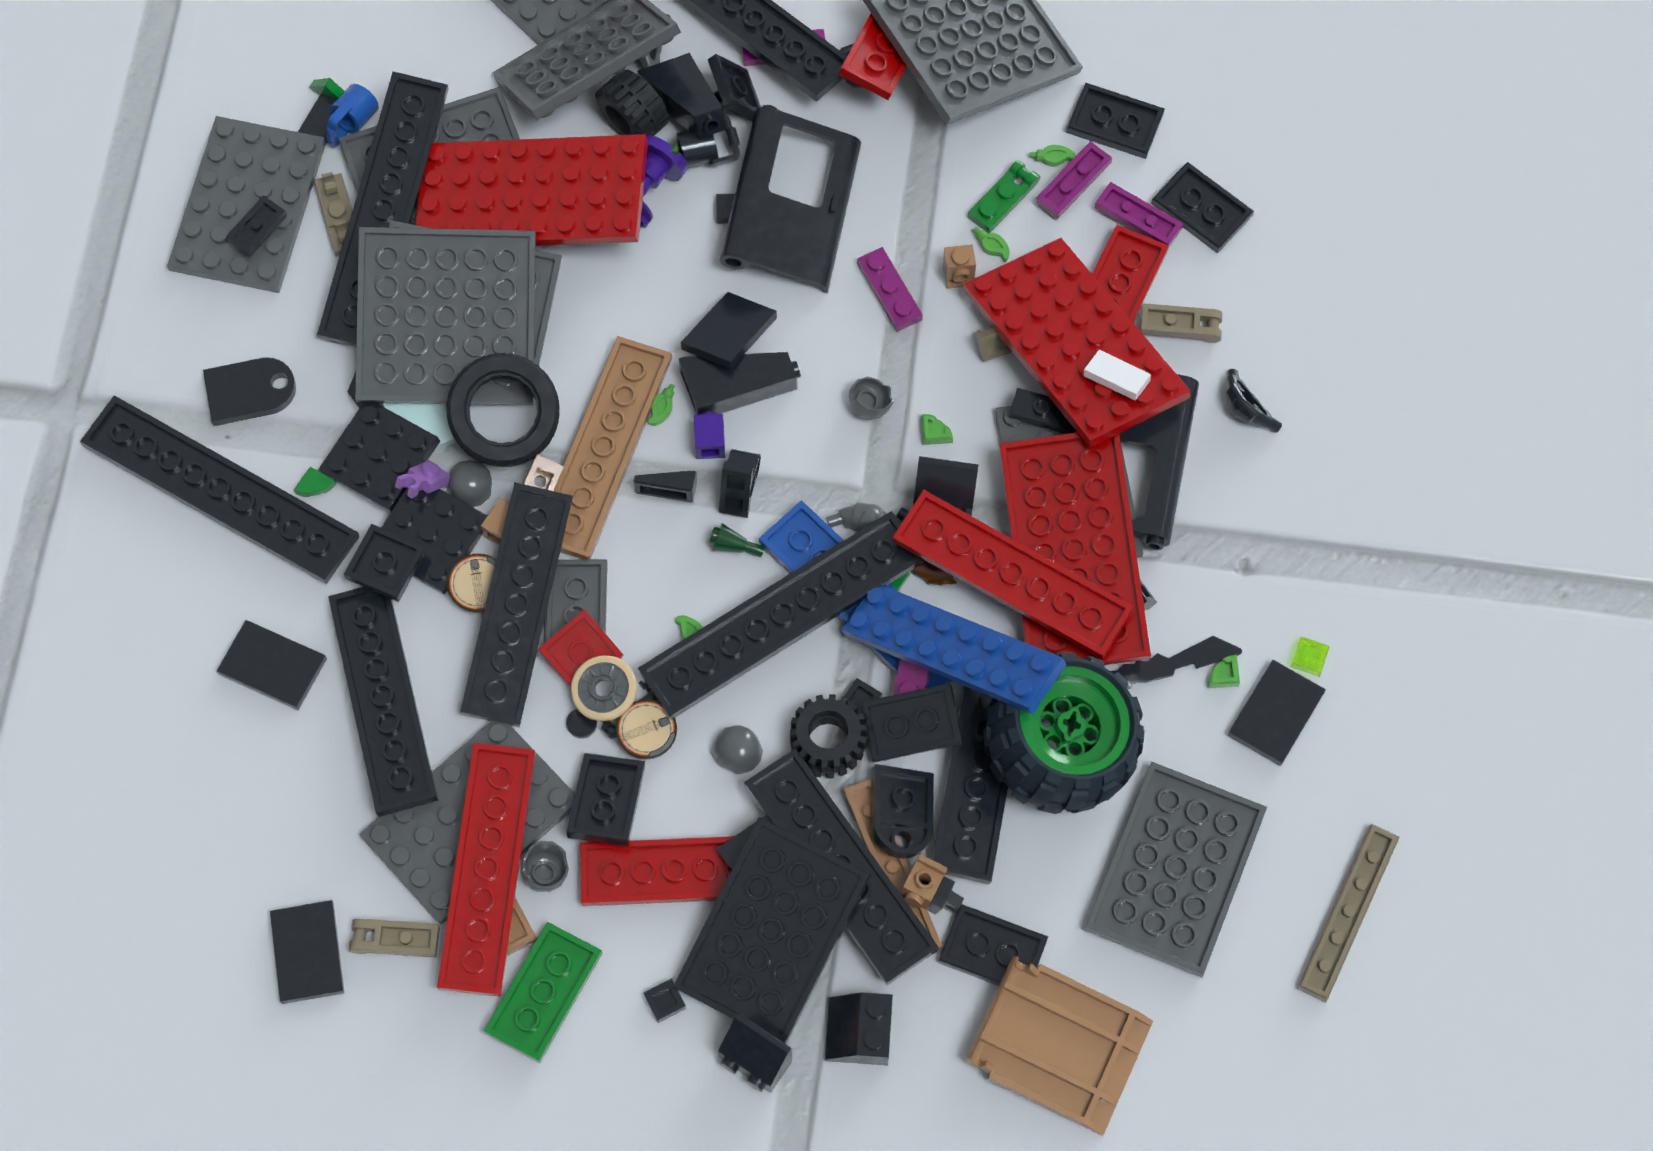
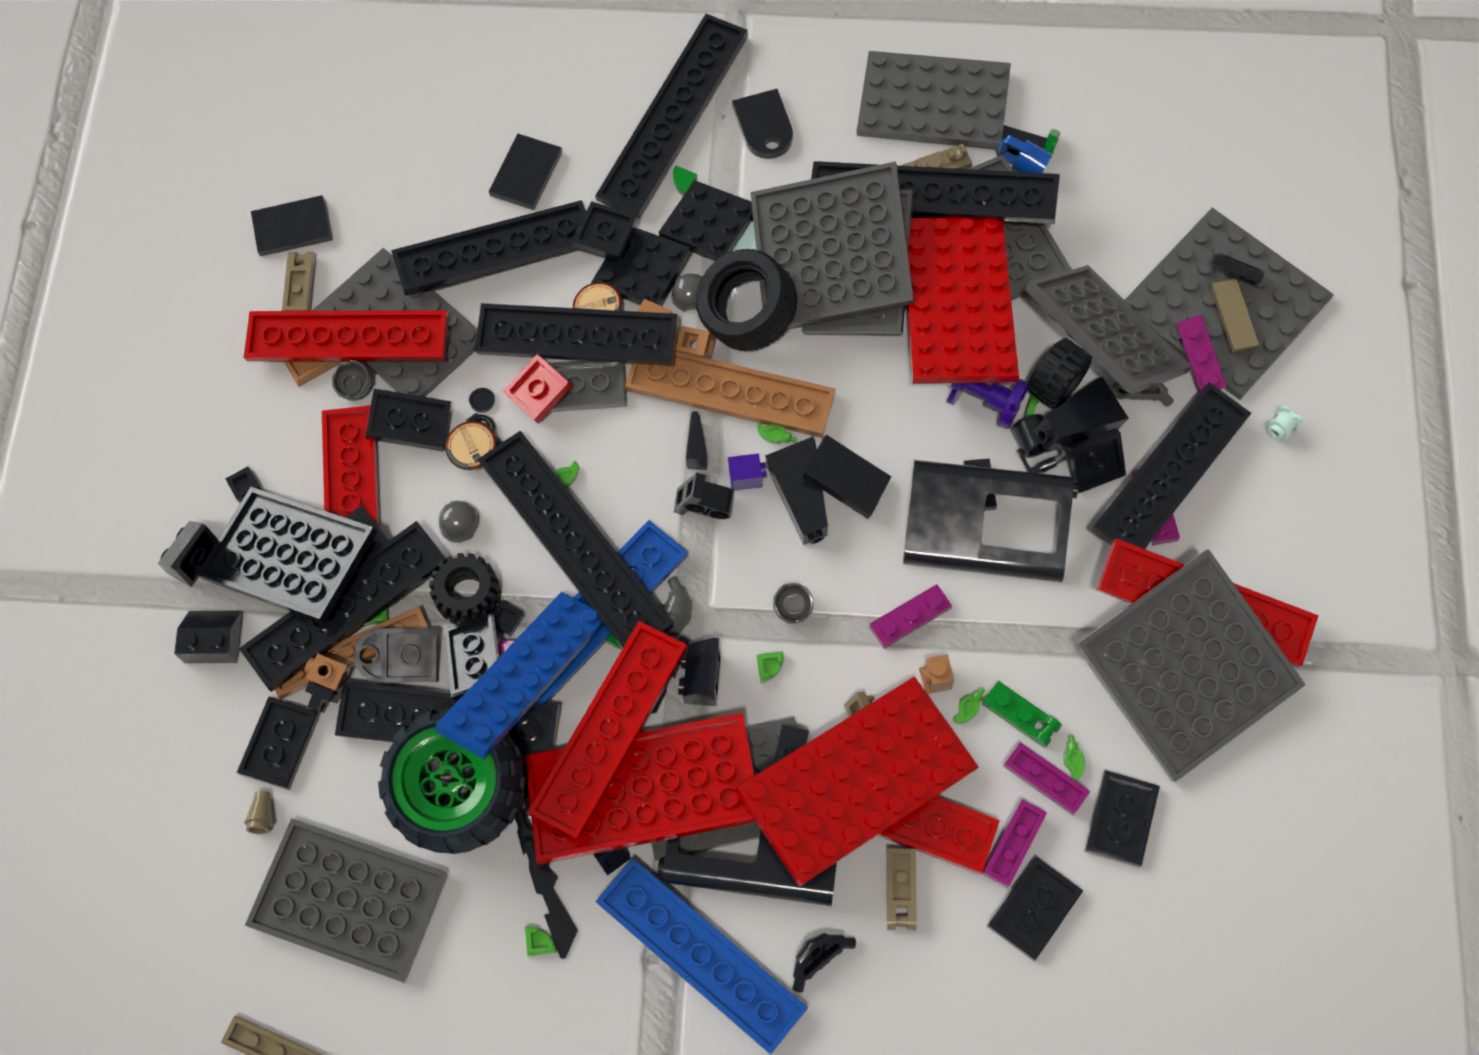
camera: 90 degrees right, 0 degrees up
(256, 226) = (905, 101): black plate -> none
(423, 477) = (684, 252): medium lavender plate -> none
(543, 992) = (251, 392): green plate -> none
(617, 701) = (515, 416): wheel -> none
(728, 540) = (647, 497): dark green cone -> none
(1059, 1043) = (190, 801): medium nougat piece -> none
(1077, 964) = (259, 814): none -> dark tan cone
(1117, 375) = (809, 810): white tile -> none
(1242, 514) = (702, 956): none -> blue plate
(1276, 712) = (500, 992): black tile -> none
(1310, 656) = (557, 1024): clear neon green plate -> none

